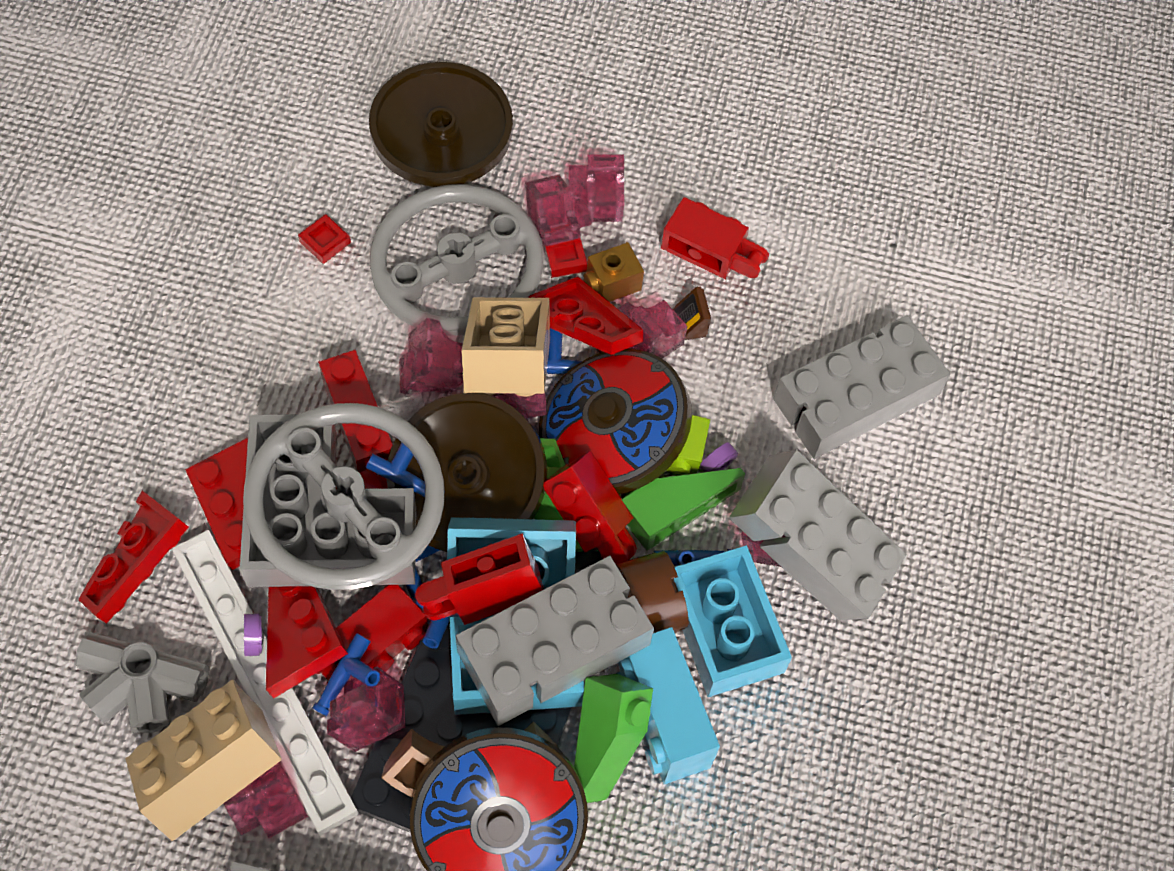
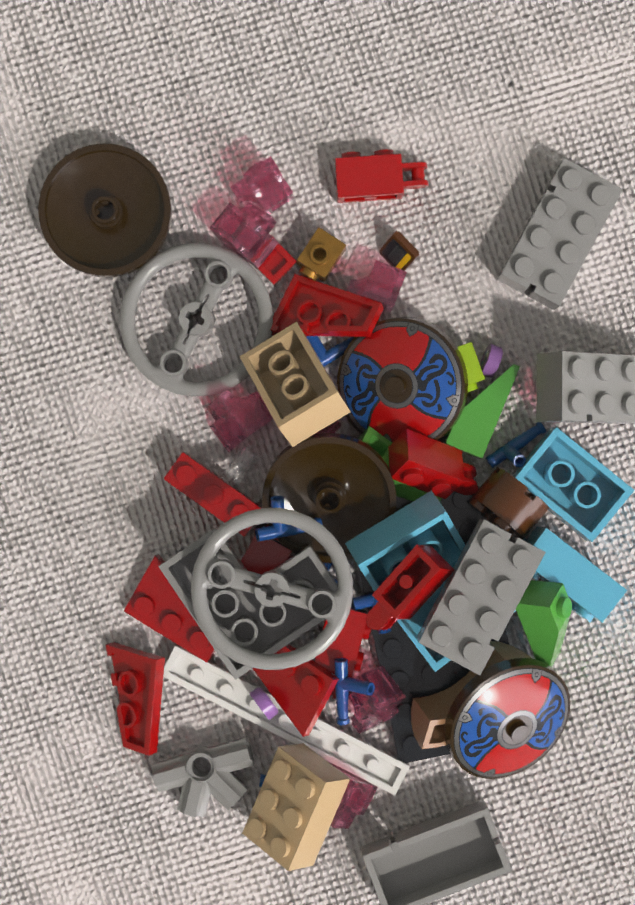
camera: 25 degrees left, 25 degrees up
(324, 238) = (83, 363): red tile -> none

